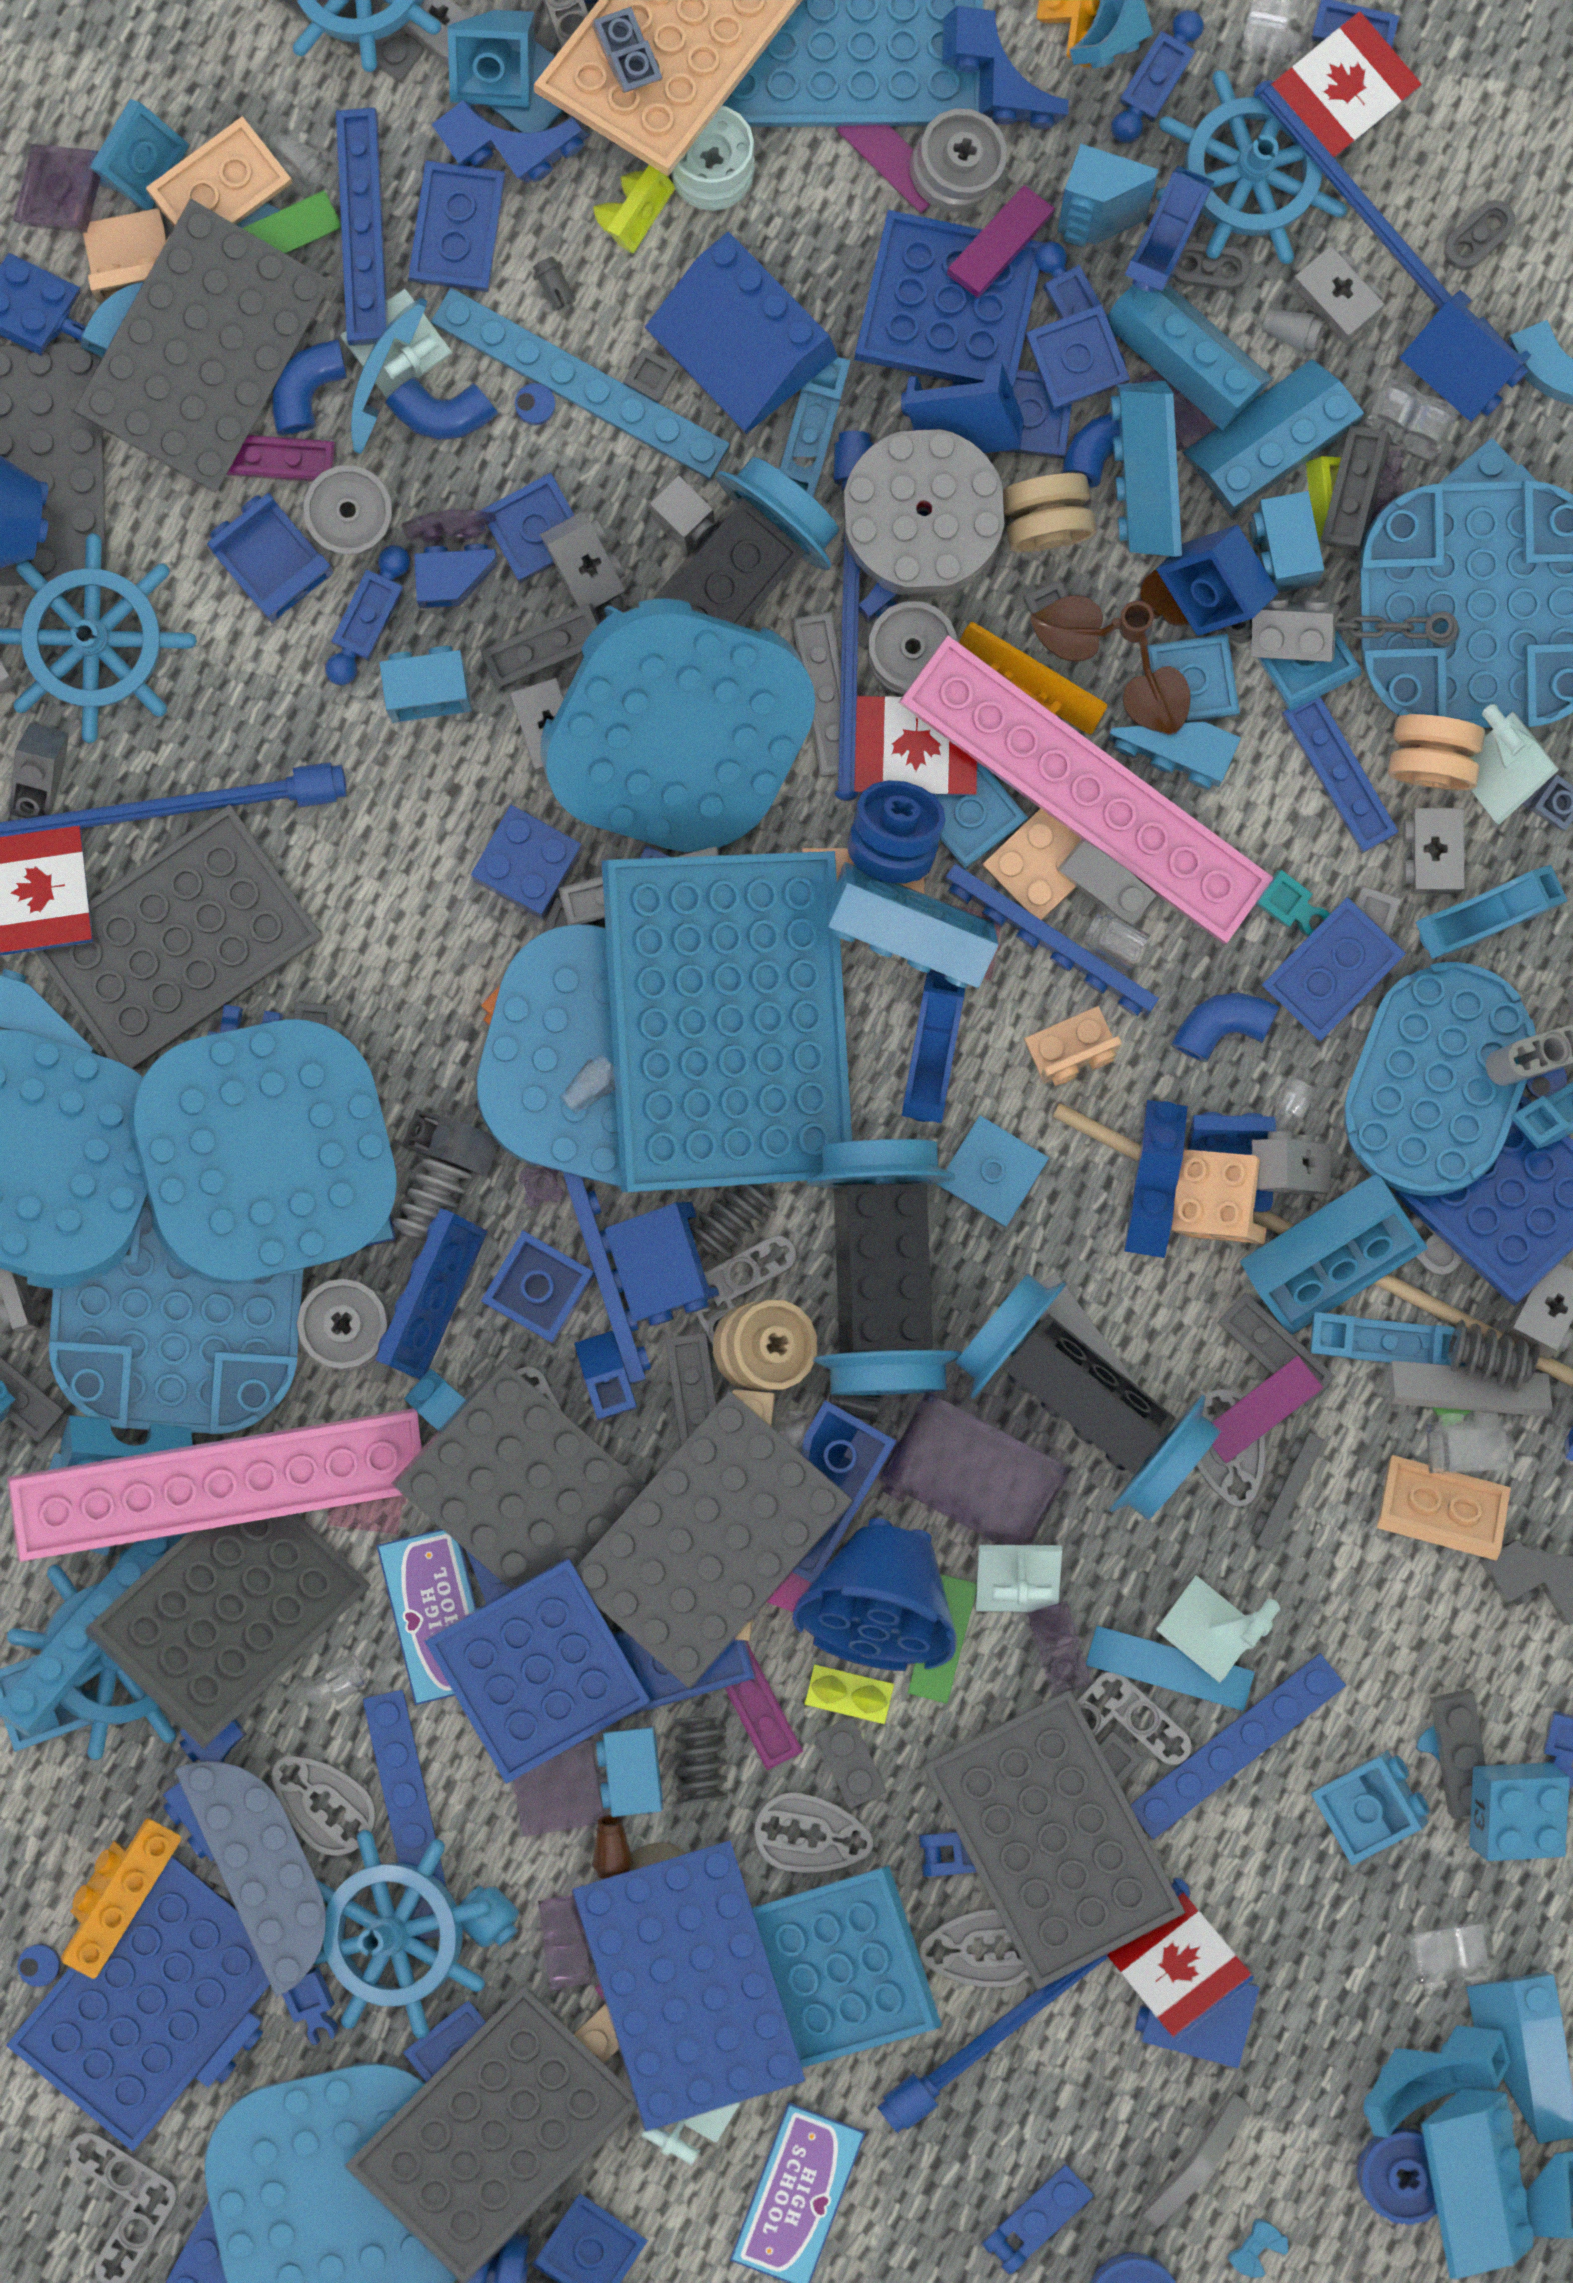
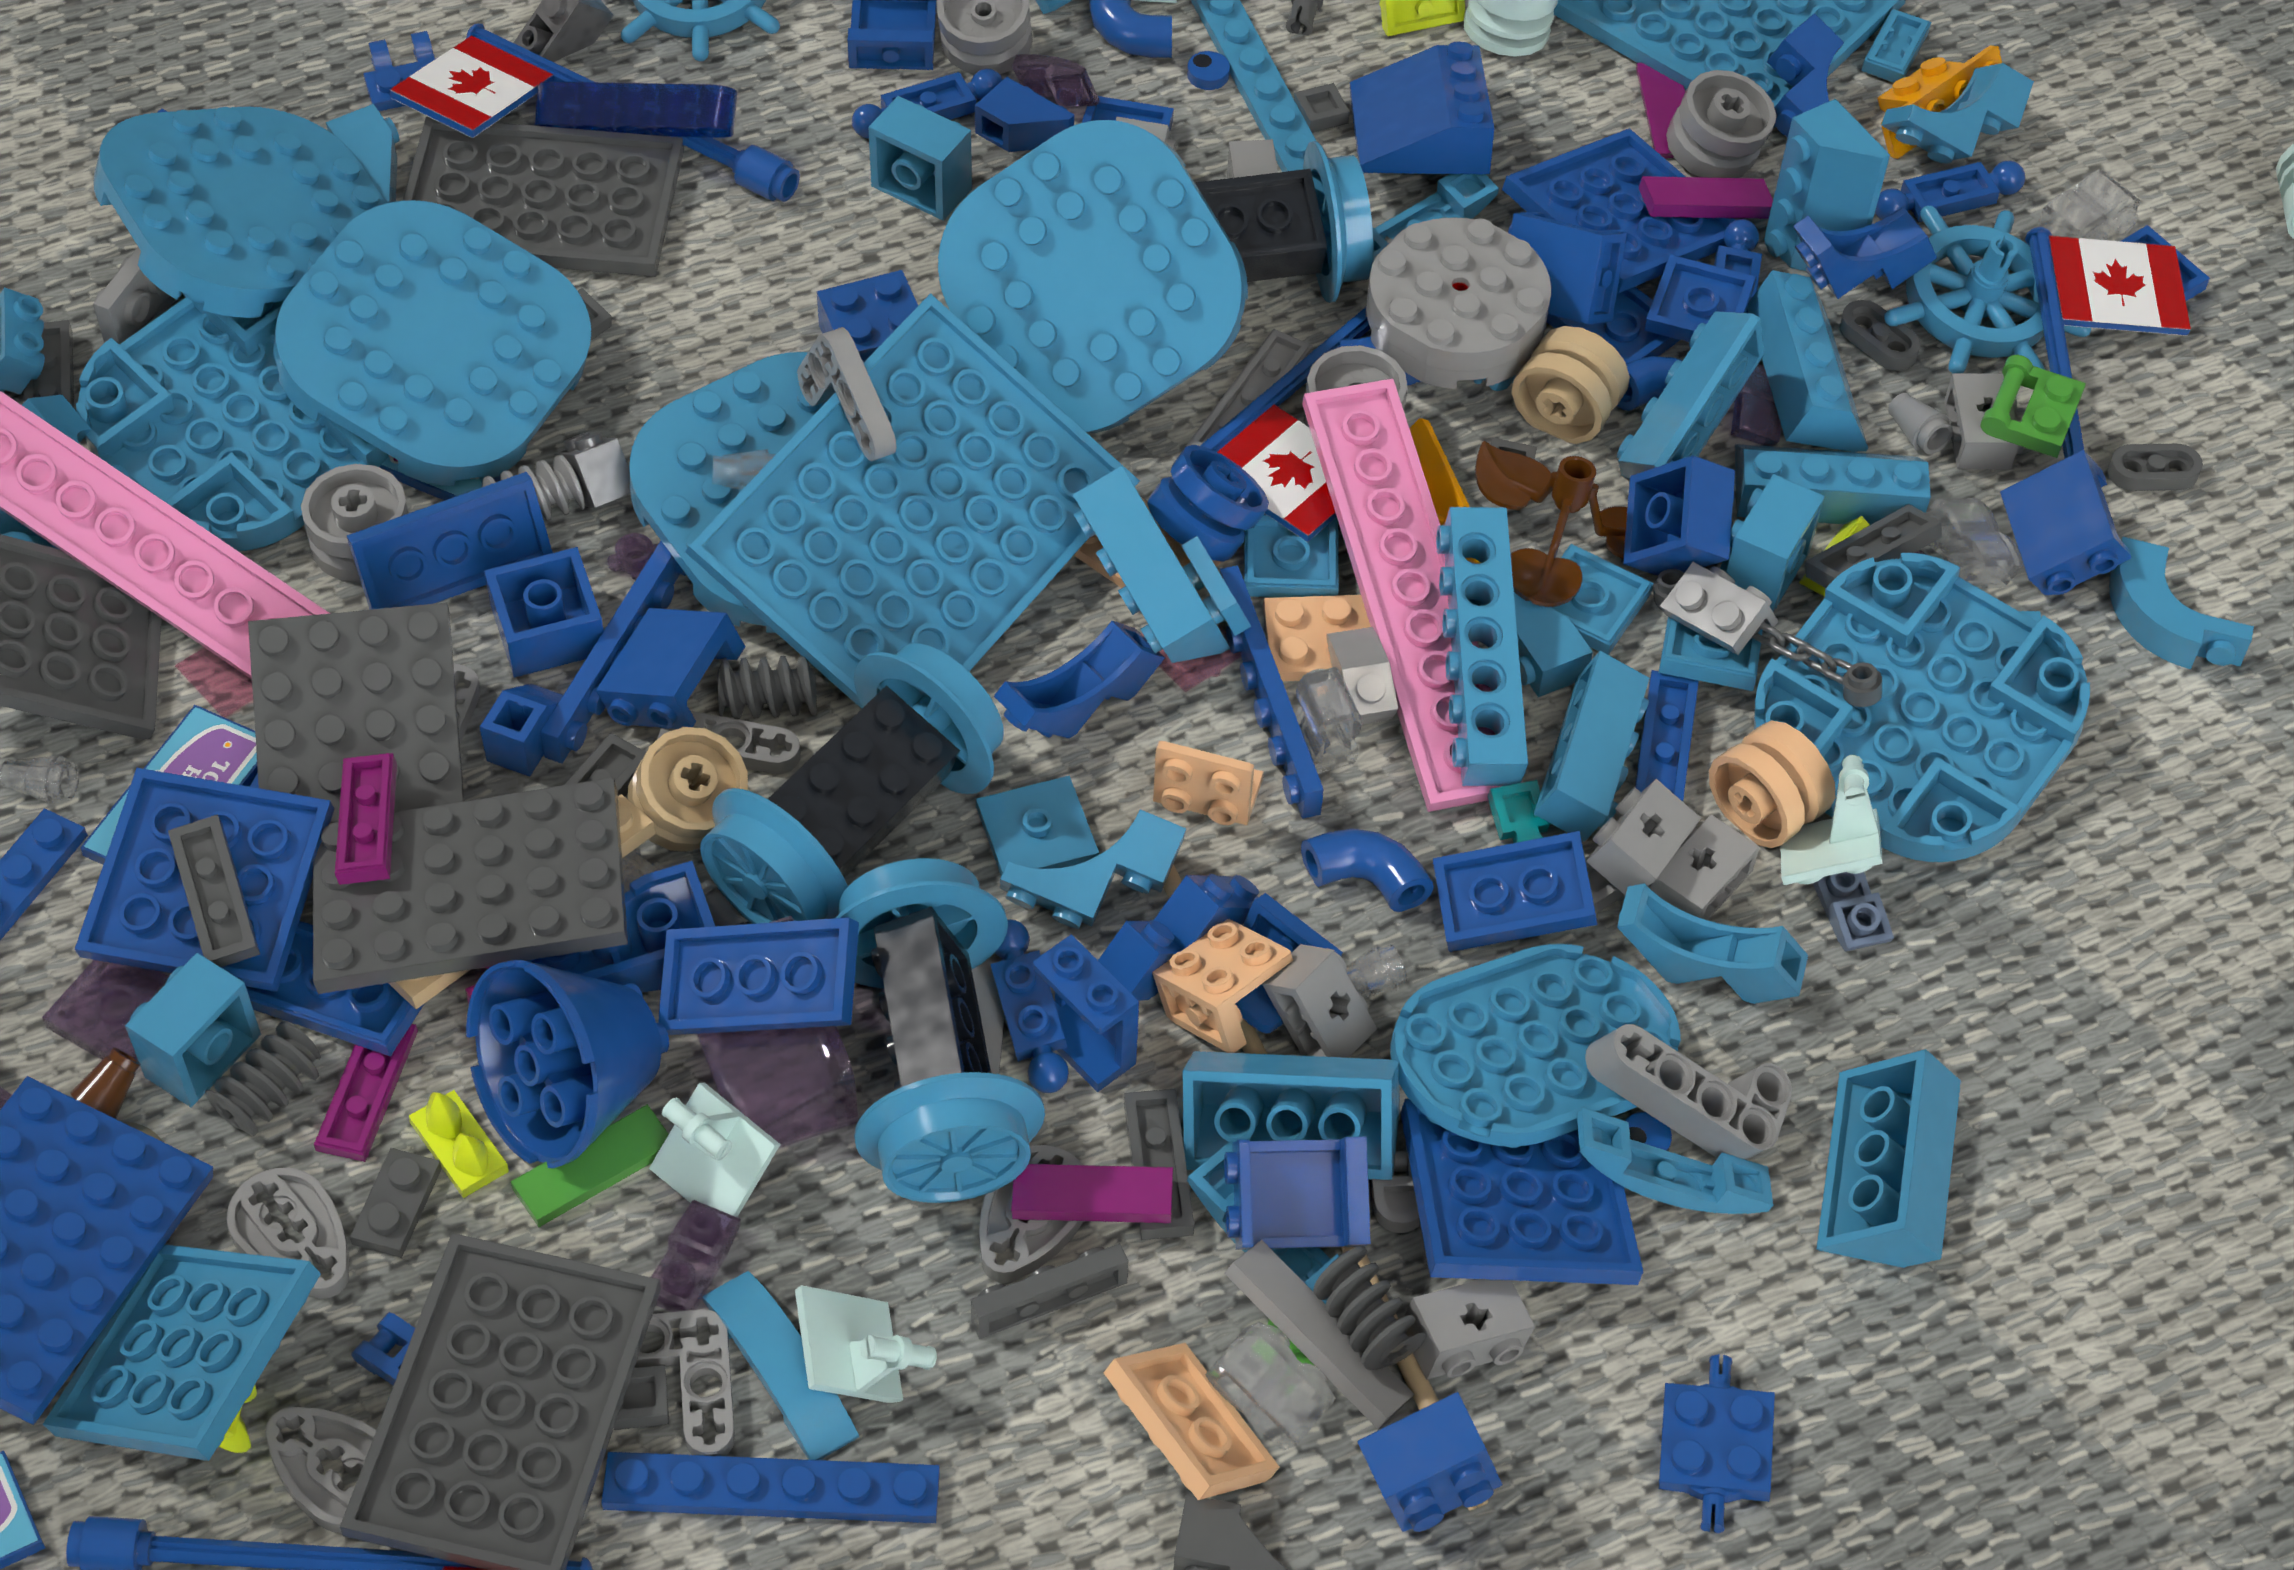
camera: 35 degrees right, 30 degrees down
(182, 816) = (638, 108): none -> clear blue beam
(564, 1682) = (214, 891): none -> dark grey plate
(597, 974) = (837, 367): none -> light grey beam
(606, 1553) = (366, 819): none -> magenta tile
(948, 895) = (1205, 574): none -> dark azure plate
(959, 1458) = (759, 976): none -> blue plate
(1067, 1205) = (1077, 891): none -> dark azure arch
(1109, 1311) = (1030, 1011): none -> blue plate
(1158, 1297) = (1094, 1012): none -> blue panel
(1253, 873) = (1484, 536): none -> dark azure brick
(1298, 814) = (1593, 746): none -> dark azure brick
(1387, 264) = (2047, 413): none -> bright green plate
(1388, 1311) = (1298, 1193): none -> blue panel
(1393, 871) = (1643, 837): none -> light grey brick

